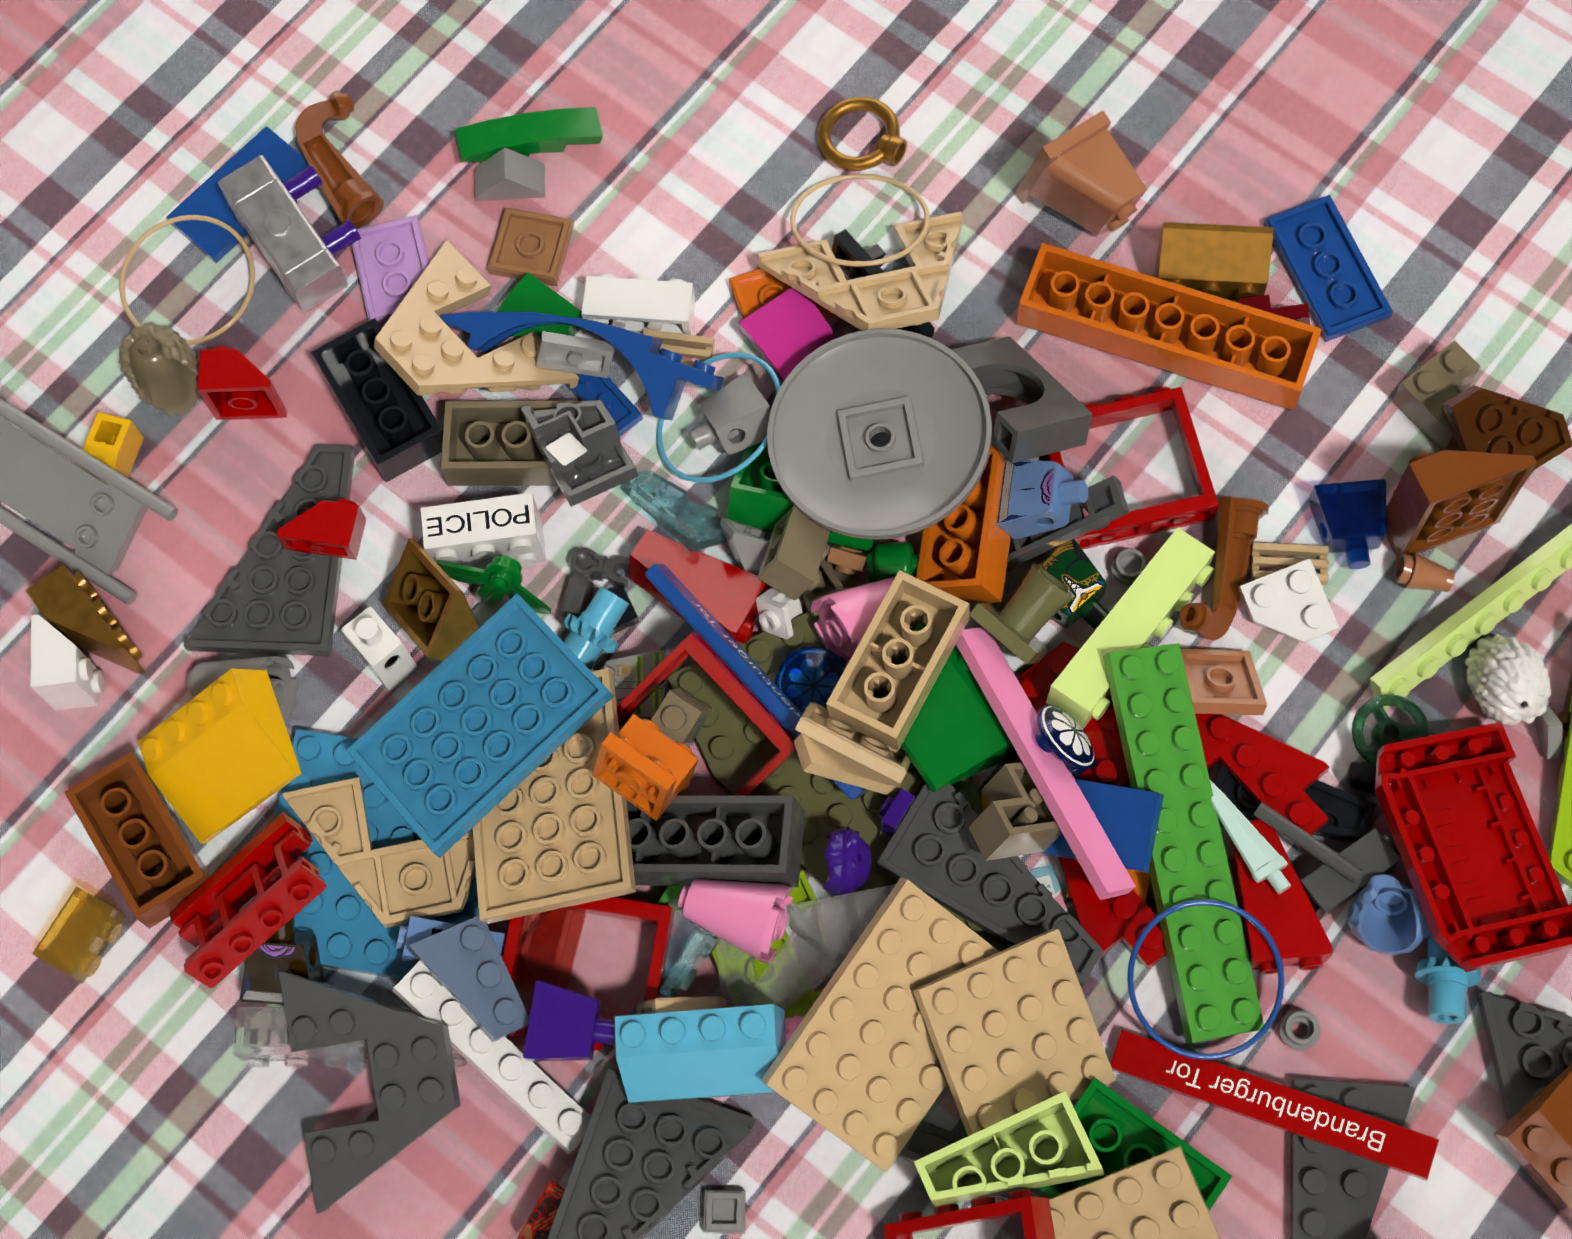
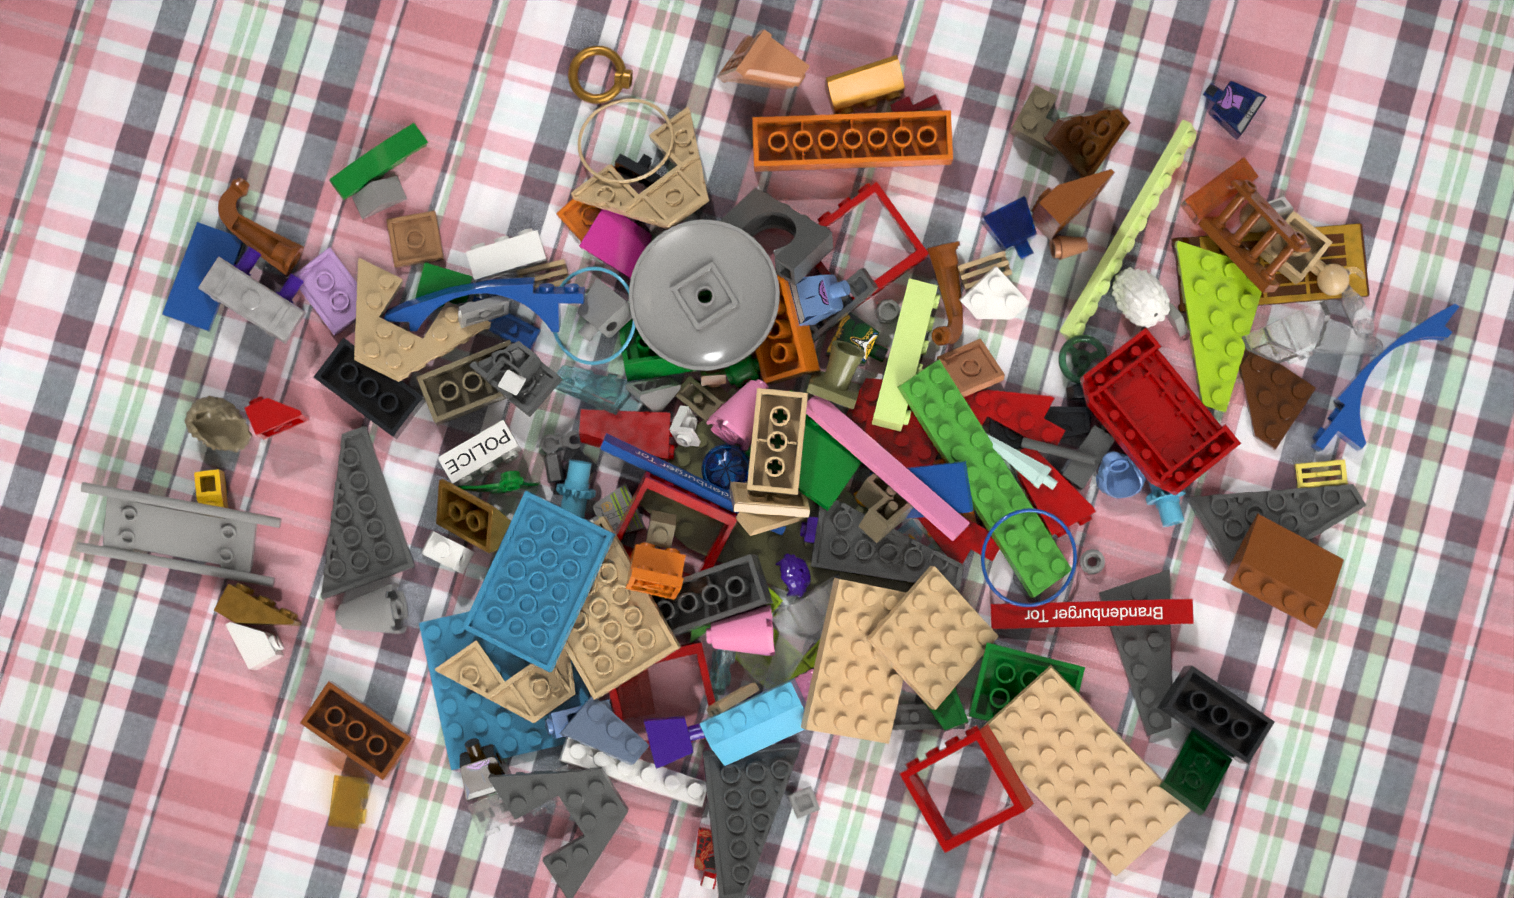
camera: 30 degrees left, 15 degrees up
(185, 218) = (190, 306): tan piece -> none
(222, 752) = (387, 661): yellow slope -> none
(264, 868) = (432, 735): red fence -> none
(326, 530) = (379, 490): red slope -> none
(794, 554) = (682, 393): dark tan brick -> none
(1016, 1154) = (962, 706): yellowish green wedge -> none
(1066, 738) = (893, 446): clear blue dish -> none
(1328, 268) = (937, 55): blue tile -> none

